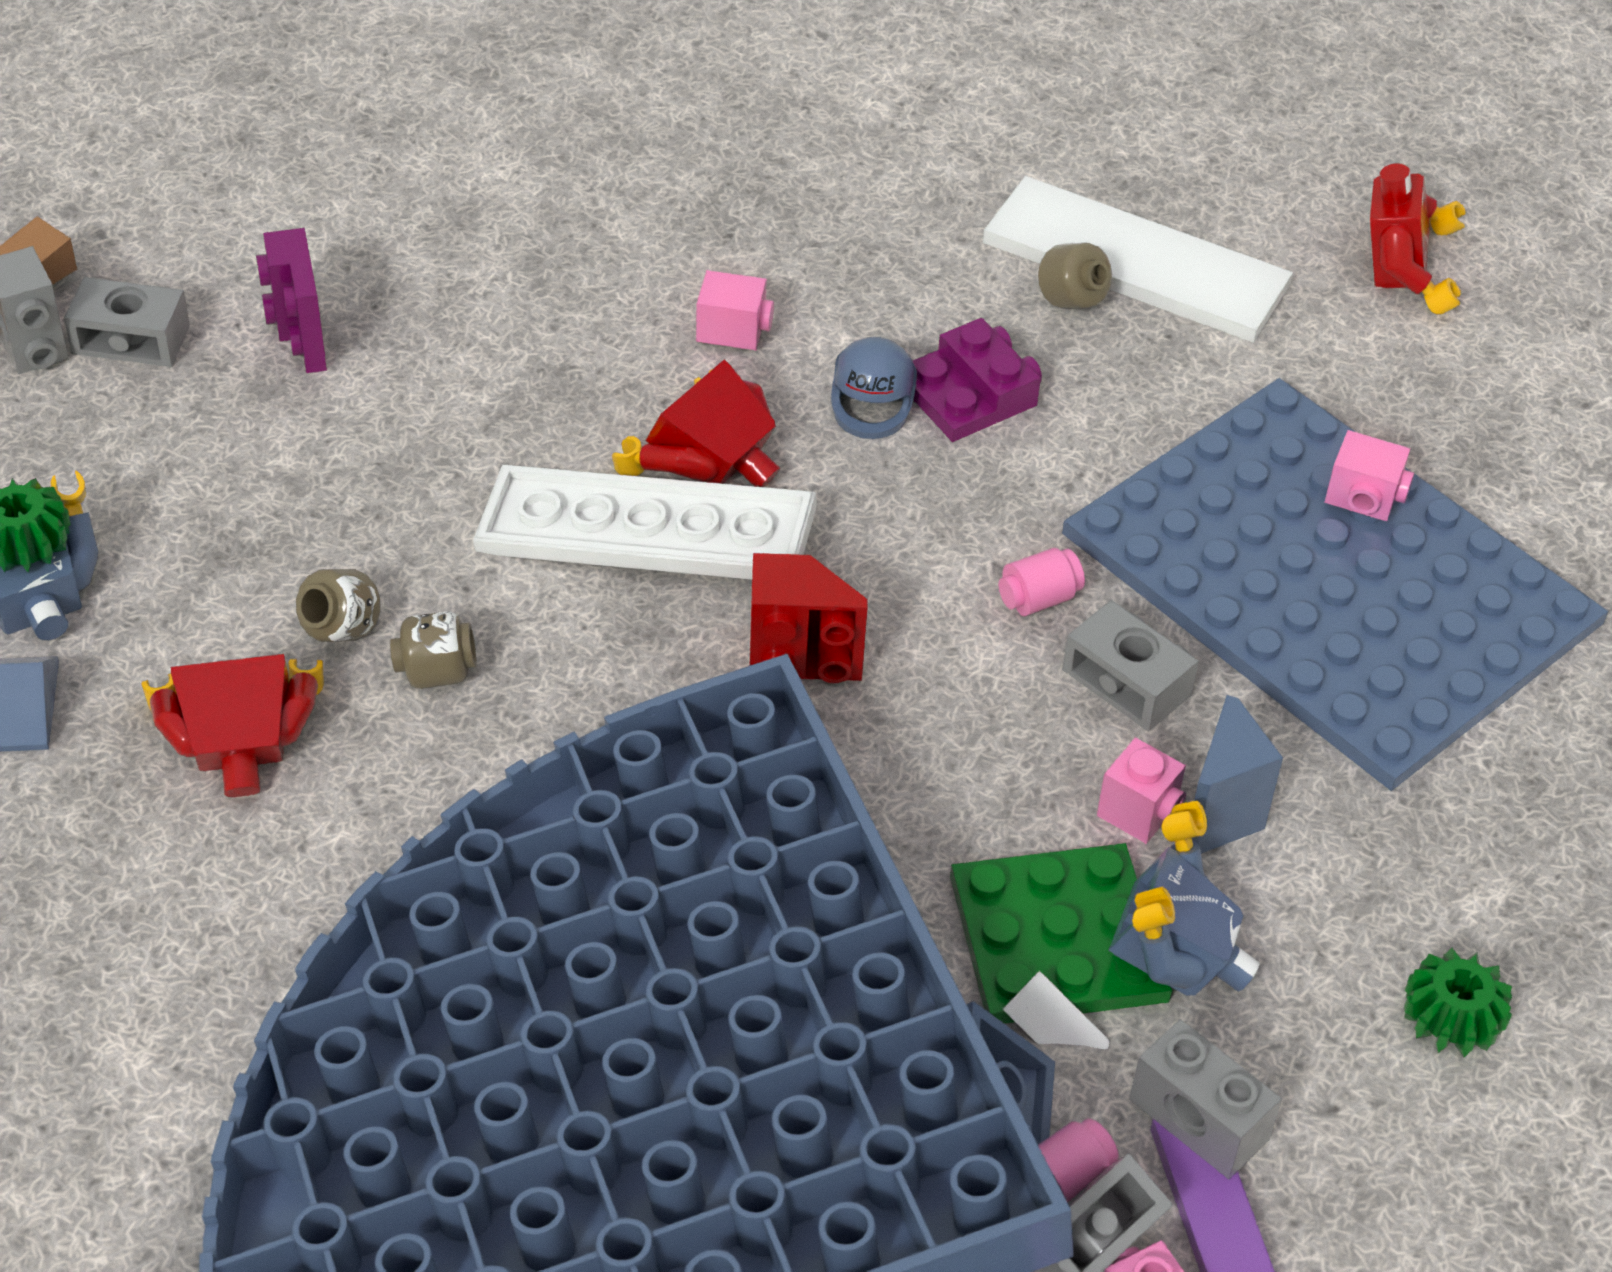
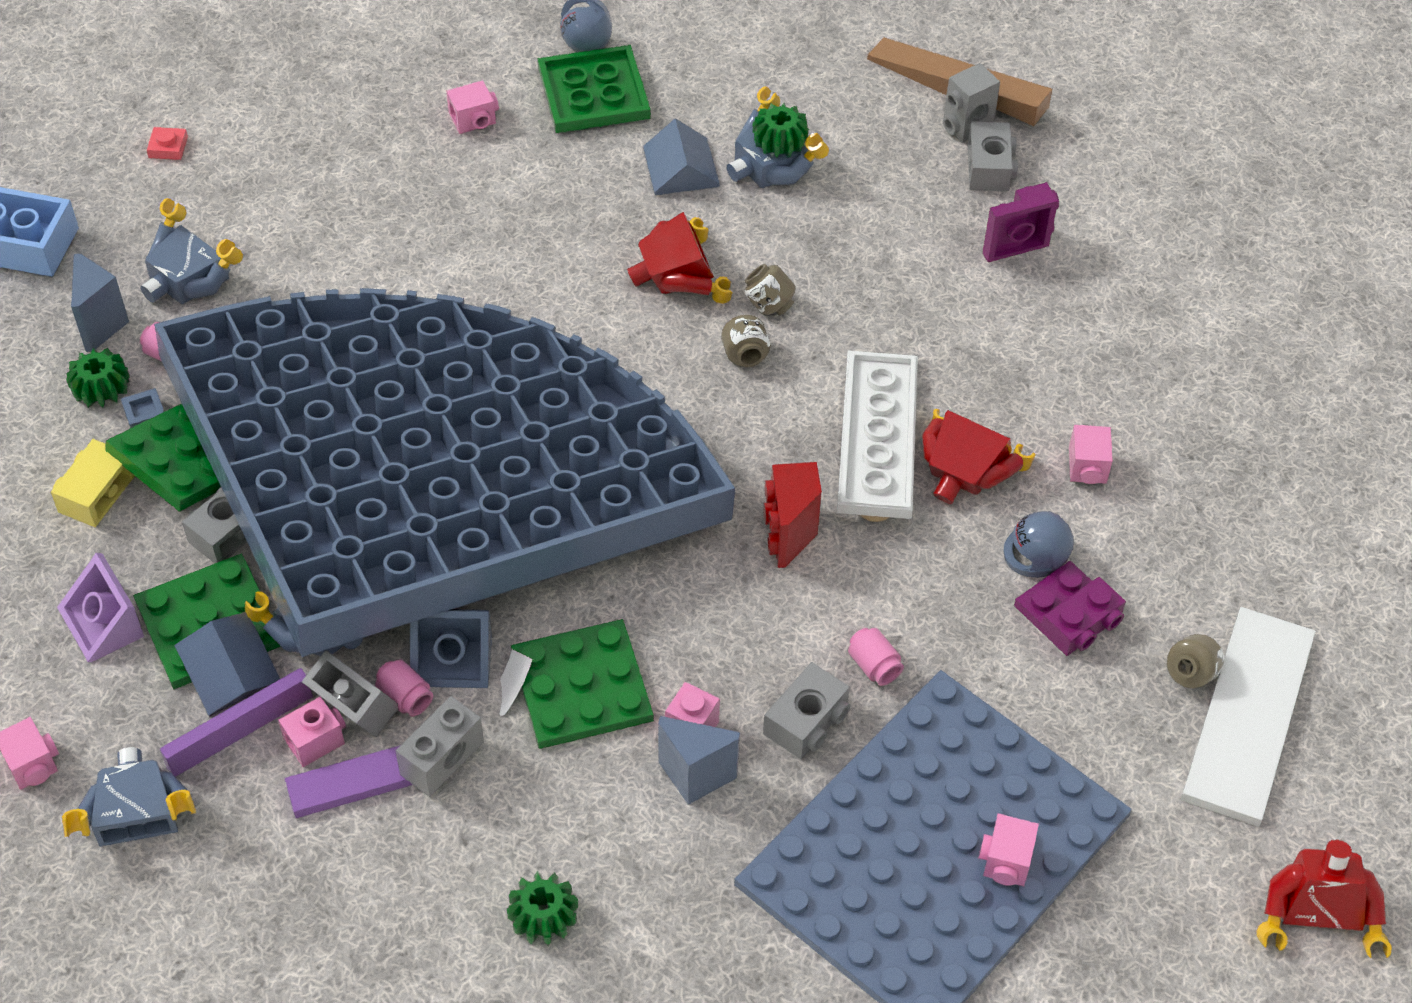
camera: 85 degrees right, 5 degrees up
(1178, 920) = (574, 731): sand blue torso -> none

